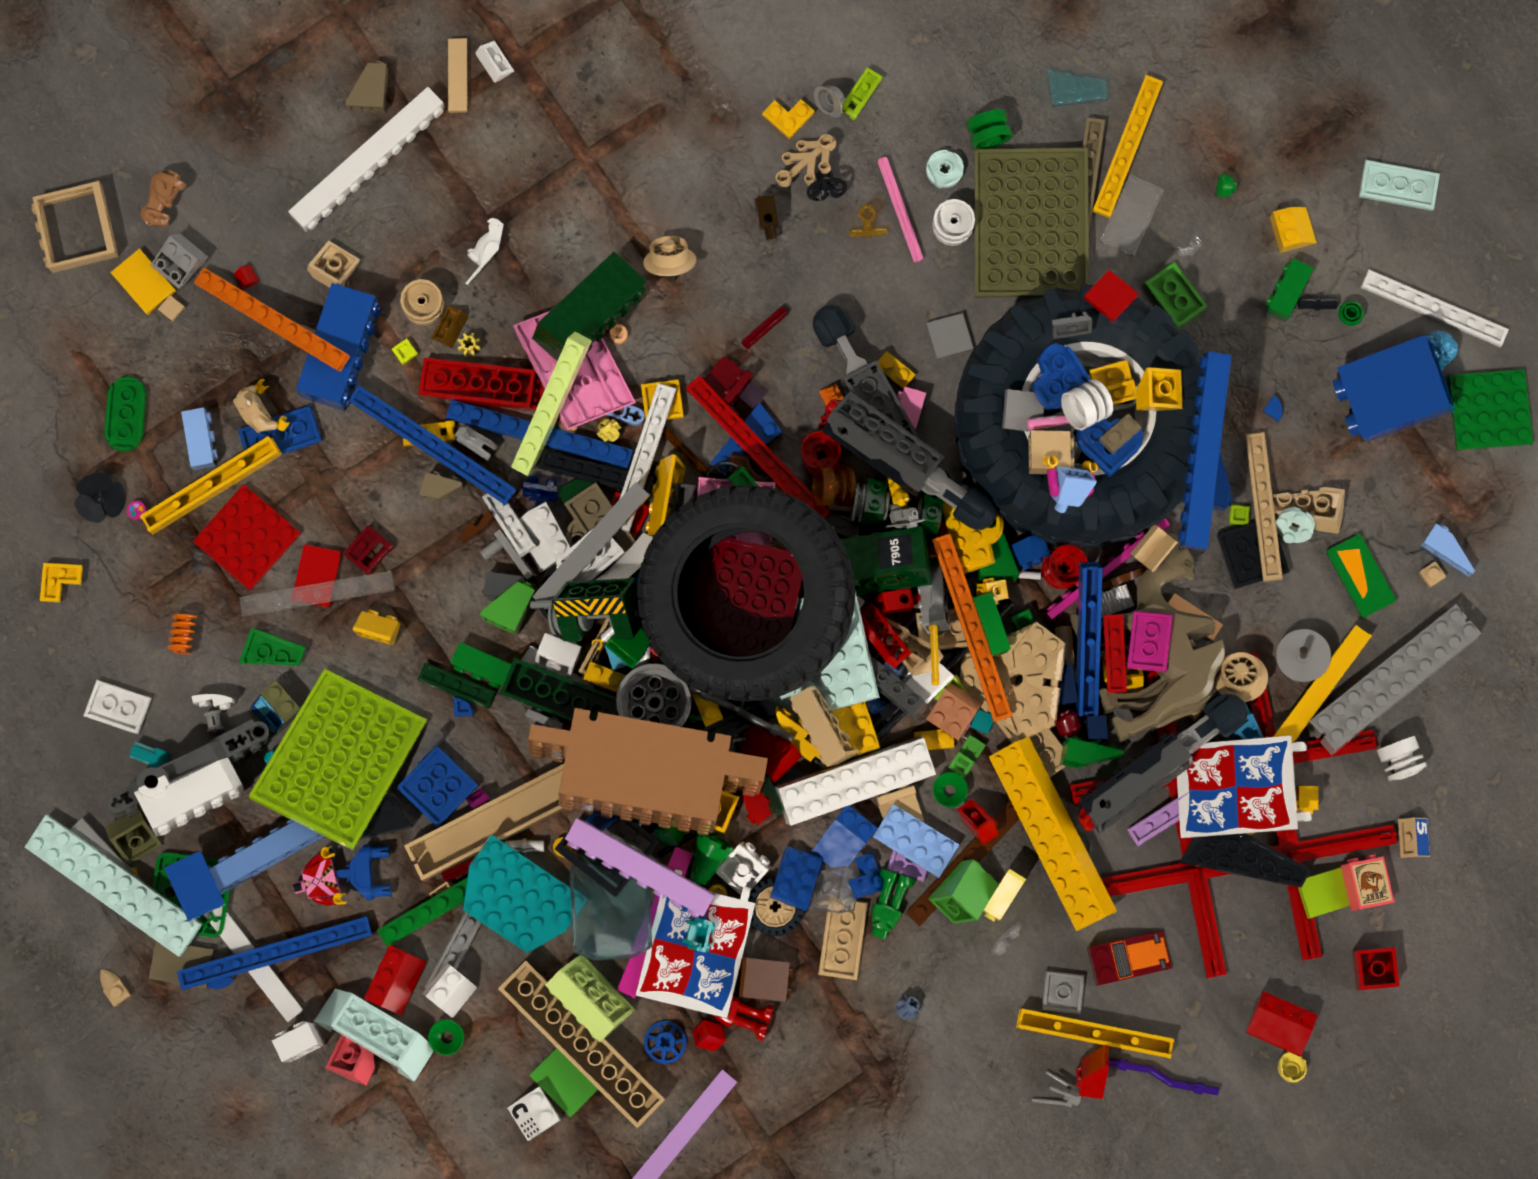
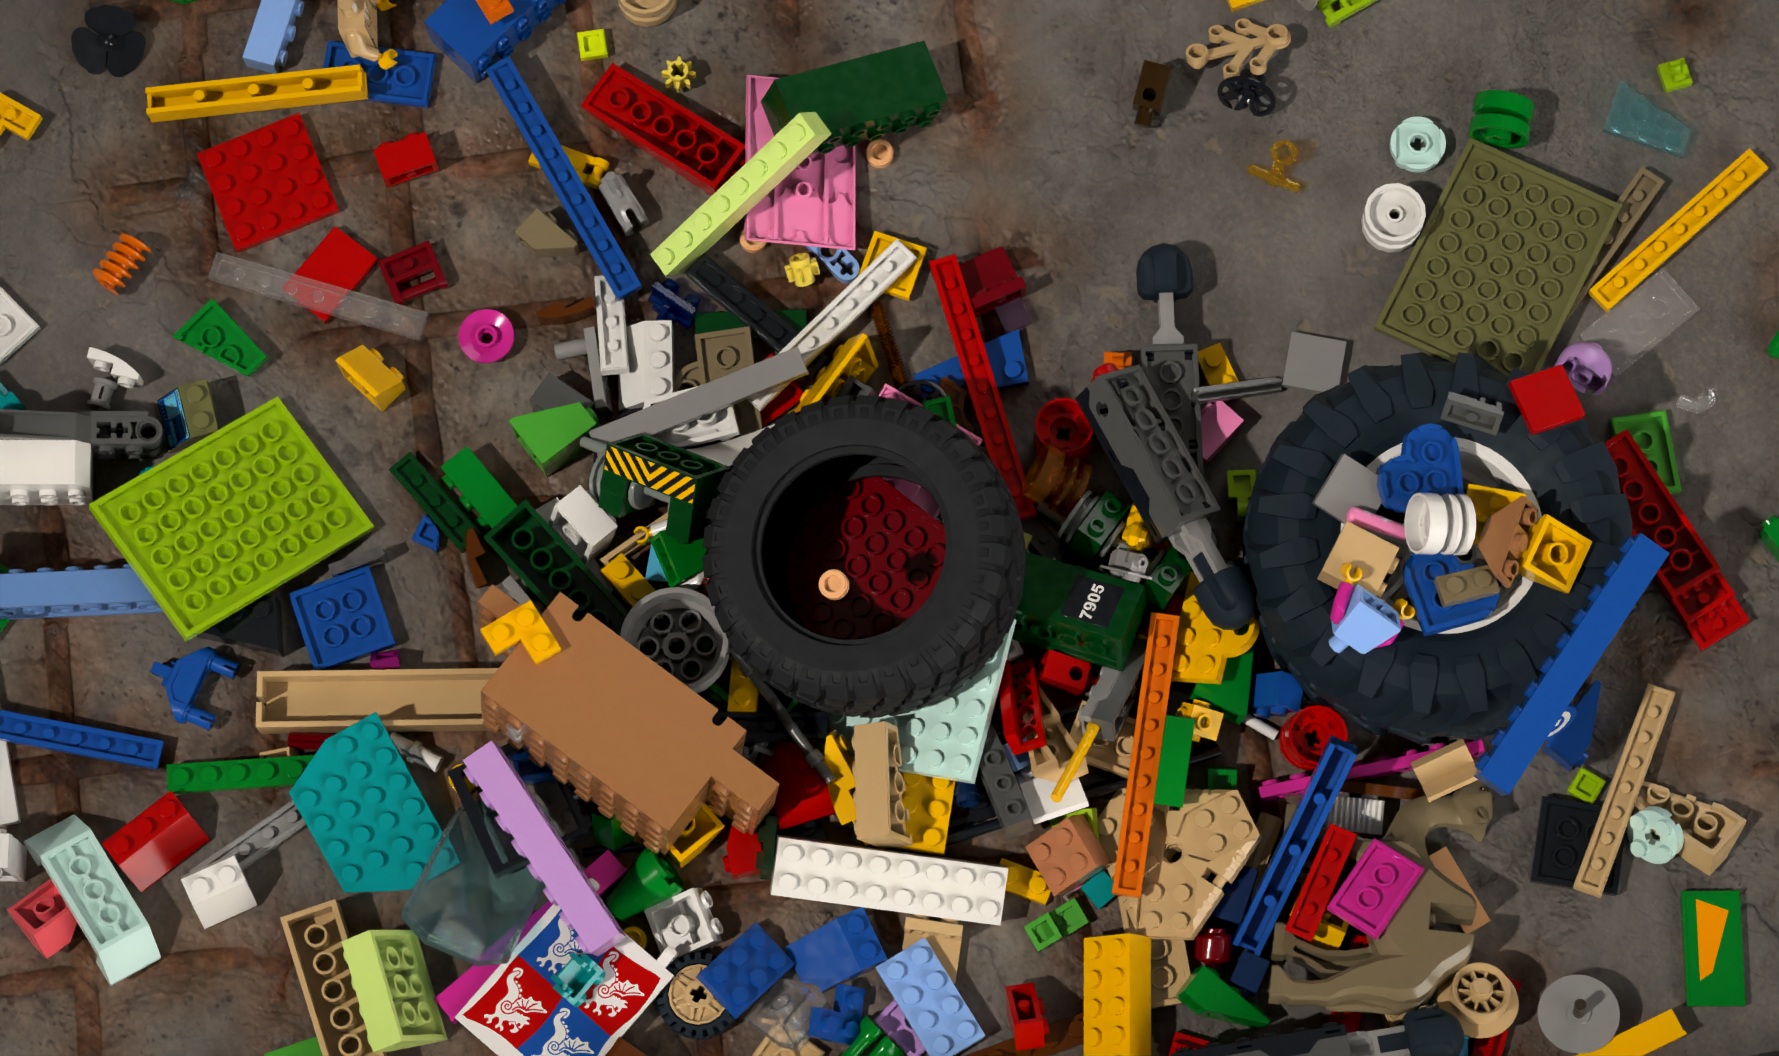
camera: 30 degrees right, 5 degrees down
(136, 509) = (146, 78): dark pink tile -> none
(321, 880) = (129, 663): torso -> none
(326, 480) = (405, 159): none -> red brick
(428, 560) = (485, 323): none -> dark pink dish
(436, 1033) = (171, 939): green piece -> none
(449, 326) = (667, 41): pearl gold slope -> none
(497, 705) = (472, 550): none -> reddish brown slope
(557, 440) = (728, 249): blue plate -> none
(566, 740) = (522, 626): none -> yellow plate
(669, 257) = (994, 85): tan piece -> none
(741, 621) = (833, 584): none -> light nougat tile
(764, 327) = (1074, 236): dark red axle -> none
(900, 209) = (1332, 169): bright pink axle -> none
(913, 376) = (1236, 390): none -> flat silver axle
(944, 435) = (1239, 488): none -> lime plate
(954, 780) = (1014, 942): green piece -> none
(1078, 50) = (1674, 75): none -> lime tile
(1114, 258) = (1586, 366): none -> lavender cylinder
(1130, 394) = (1506, 538): none -> medium nougat slope
(1248, 364) = (1690, 573): none -> red slope
(1274, 409) = (1704, 668): blue tile -> none

